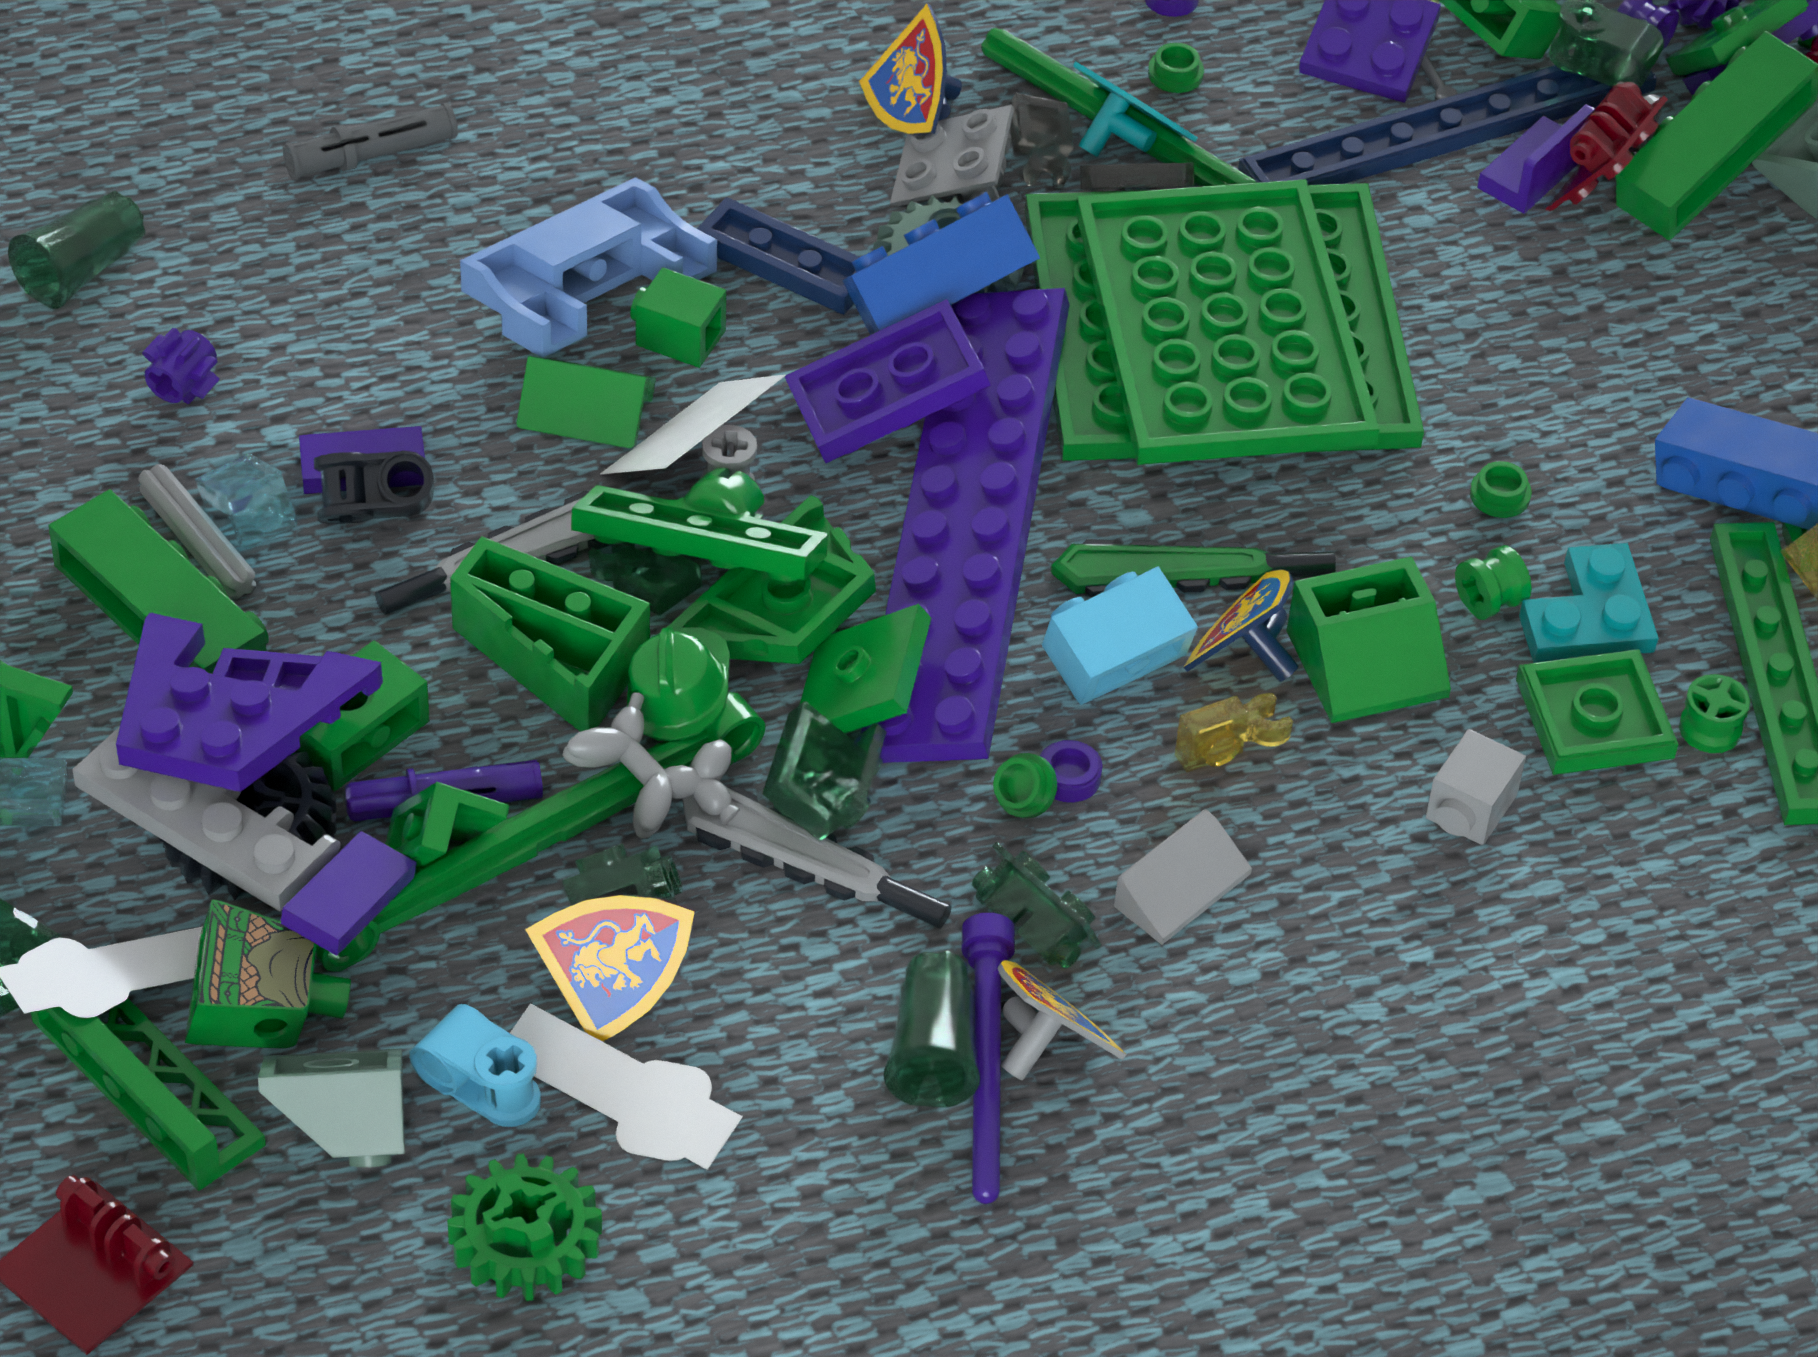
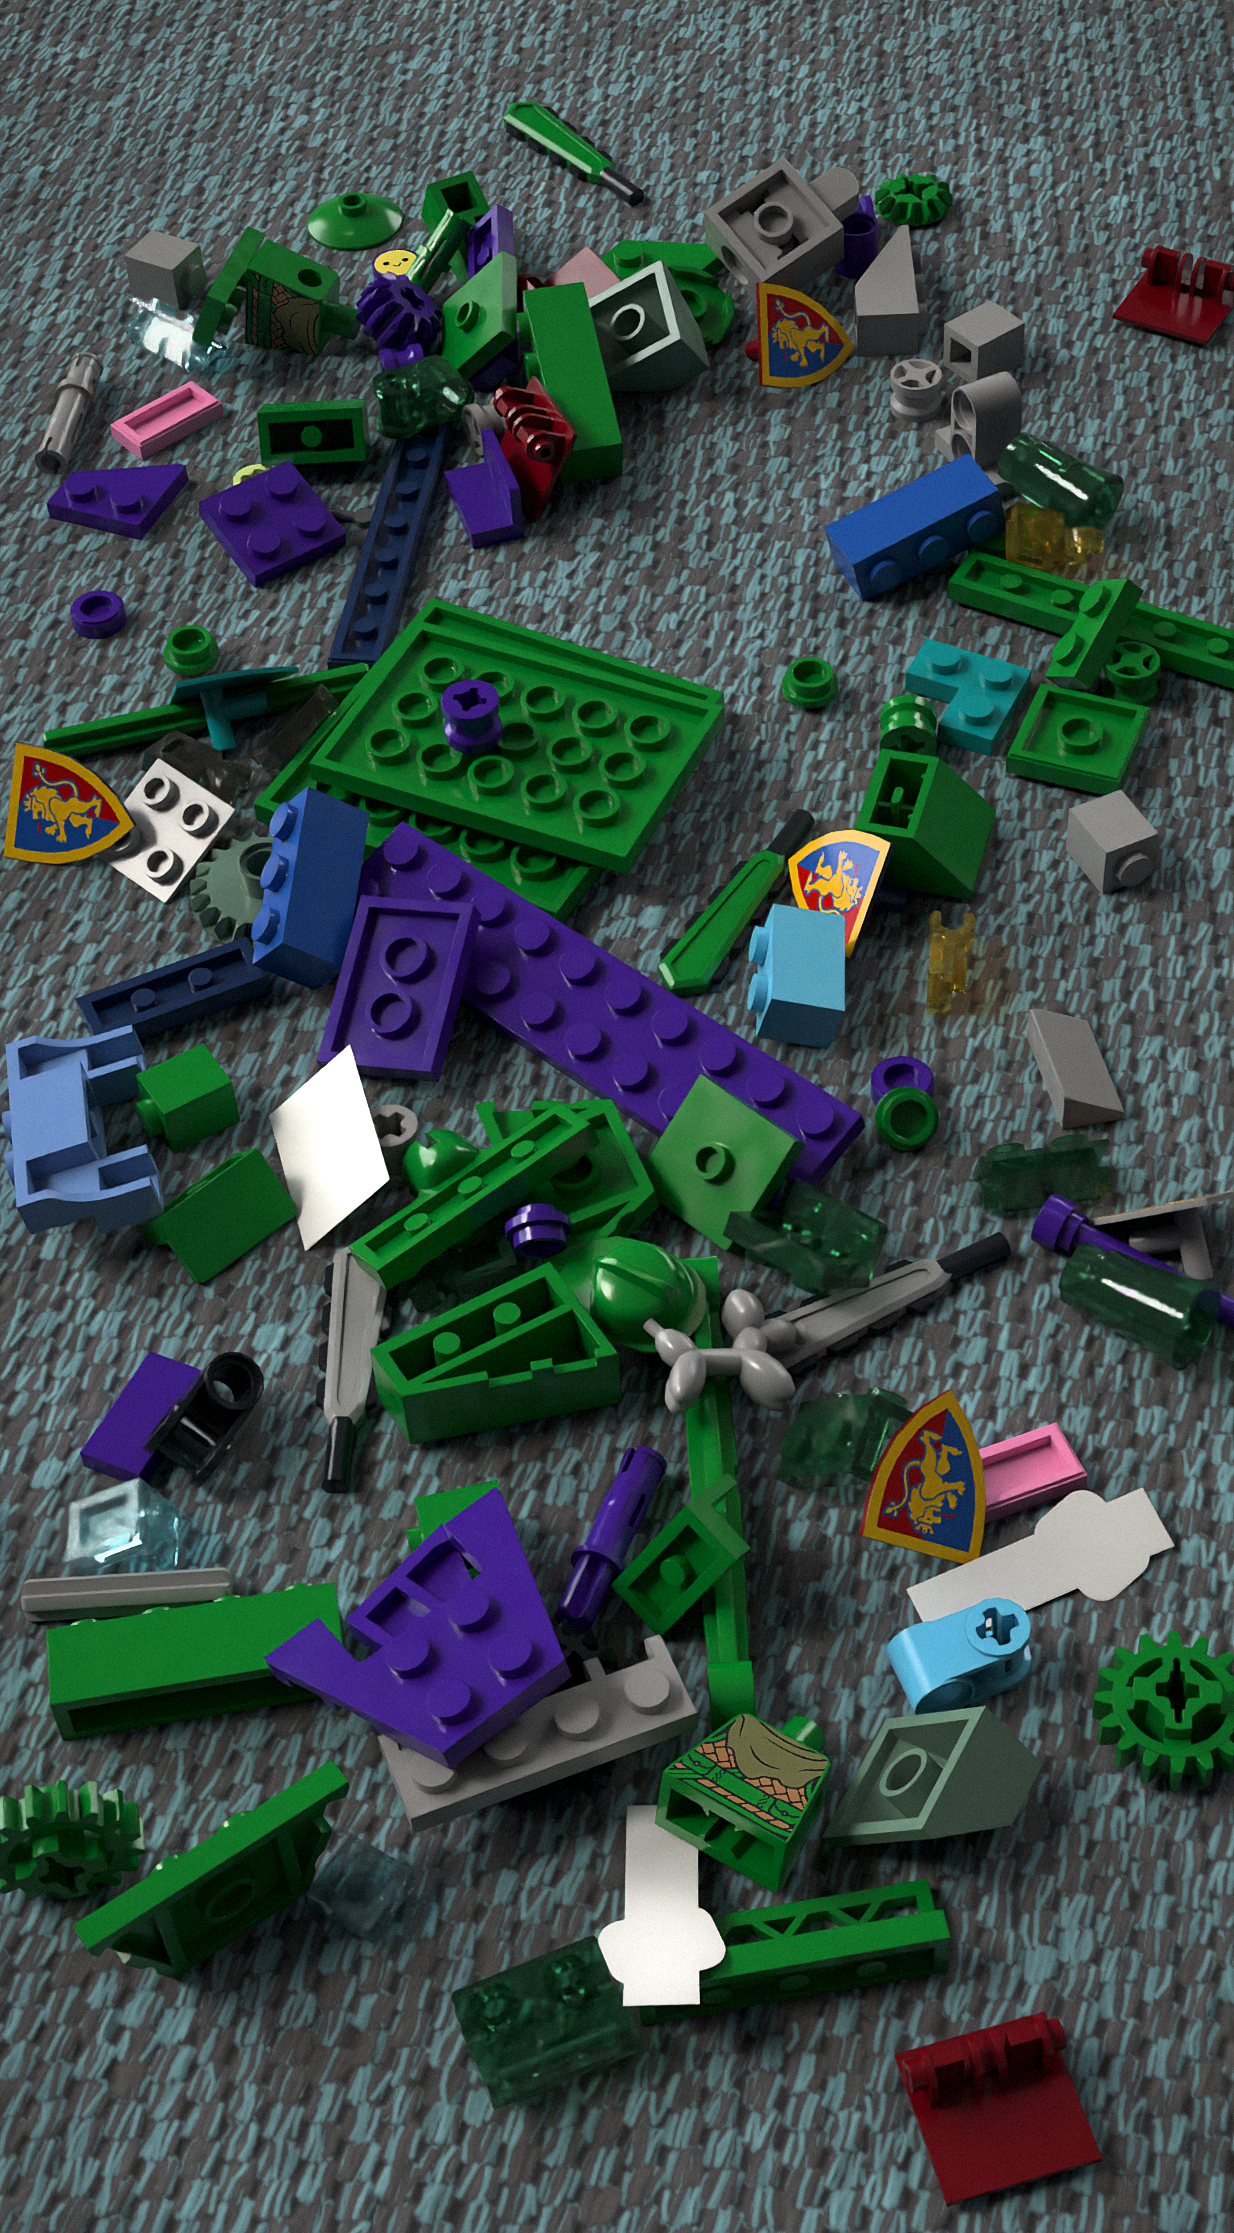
camera: 50 degrees left, 0 degrees up
(348, 893) = (722, 1657): dark purple tile -> none
(690, 588) = (538, 1231): none -> dark purple plate
(704, 1030) = (1029, 1471): none -> bright pink tile
(1202, 264) = (471, 716): none -> dark purple wheel
(1749, 642) = (1094, 633): none -> green plate

